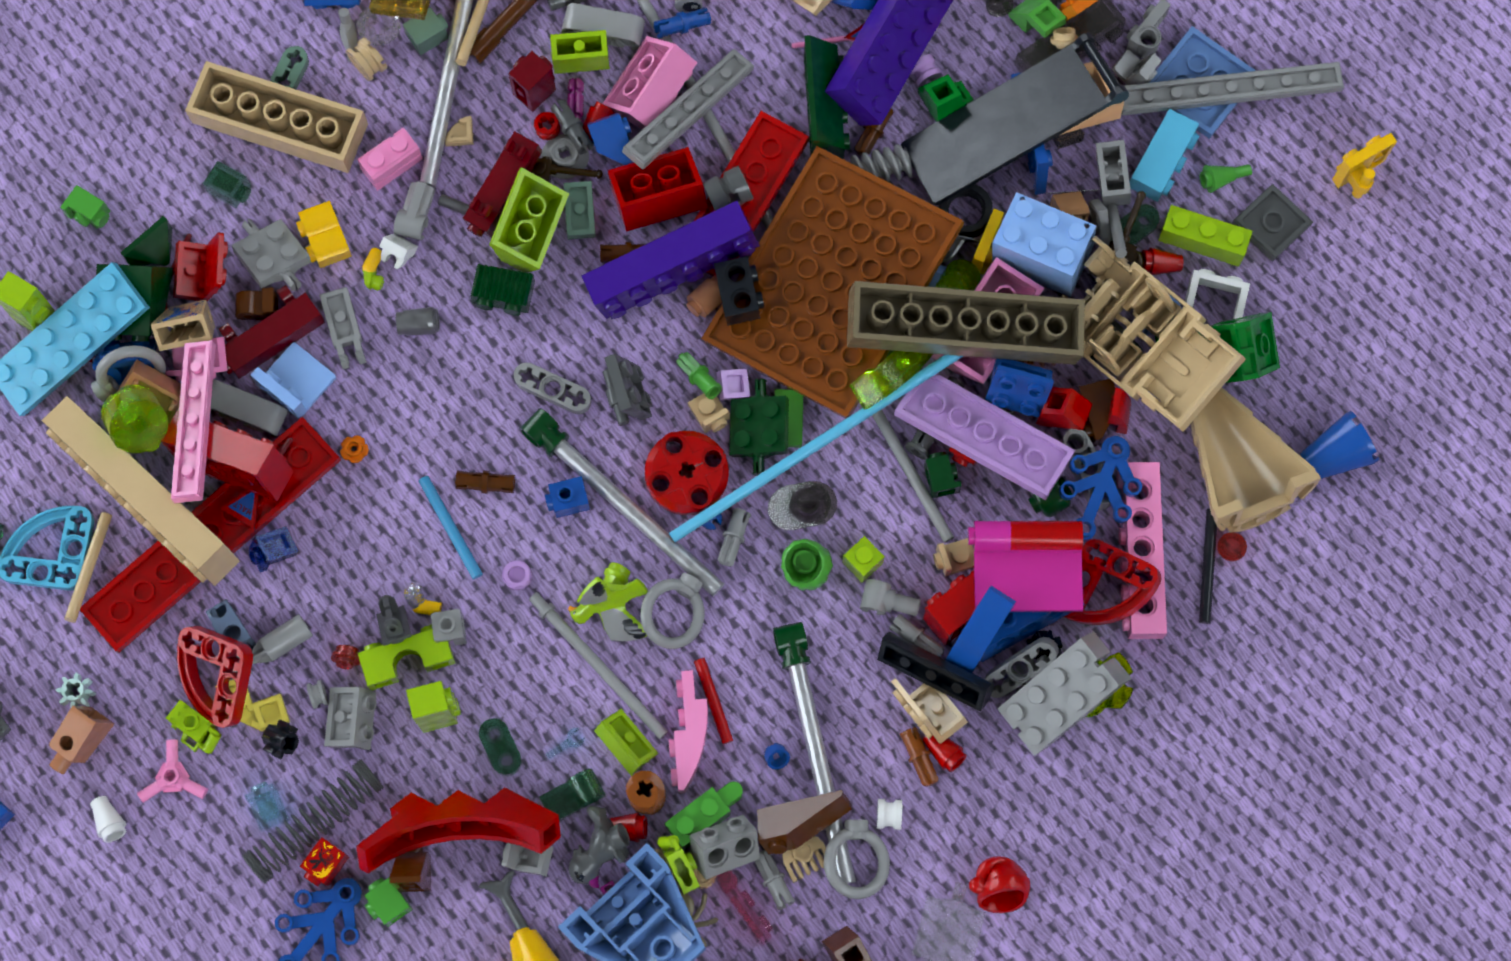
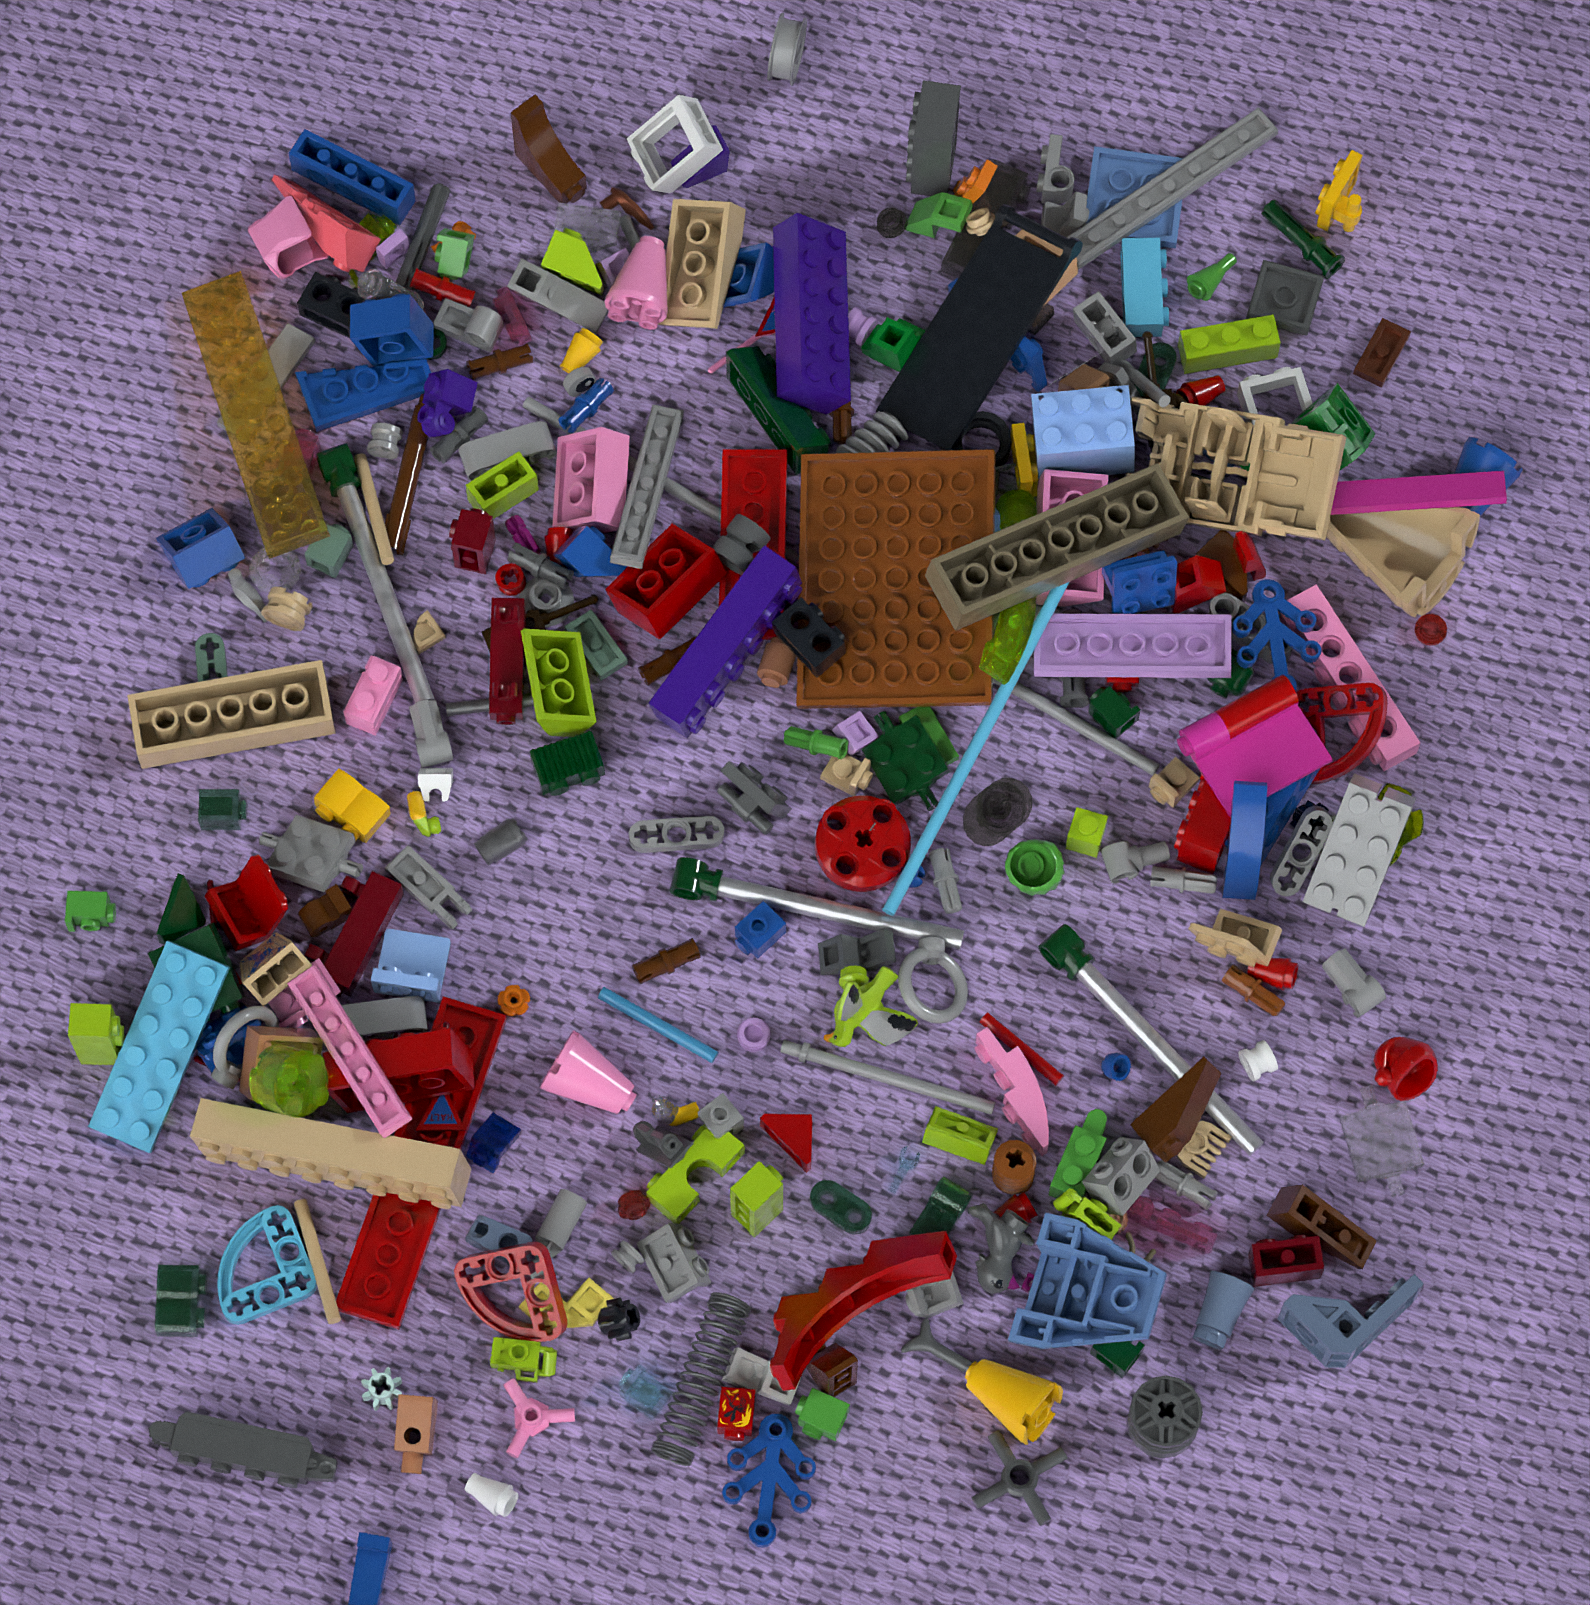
camera: 30 degrees left, 5 degrees down
(351, 833) = (754, 1373): none -> white slope
(369, 539) = (588, 1077): none -> bright pink cone
(498, 671) = (792, 1134): none -> red slope
(638, 559) = (868, 952): none -> dark grey slope
(856, 830) = (1238, 1091): light grey piece -> none
(935, 671) = (1221, 899): black brick -> none
(1002, 799) = (1356, 987): none -> light grey piece
(1208, 569) = (1419, 660): black bar -> none
(1282, 433) = (1419, 492): none -> dark pink tile
(1317, 194) = (1312, 247): none -> dark green pin
(1323, 306) = (1382, 352): none -> copper plate

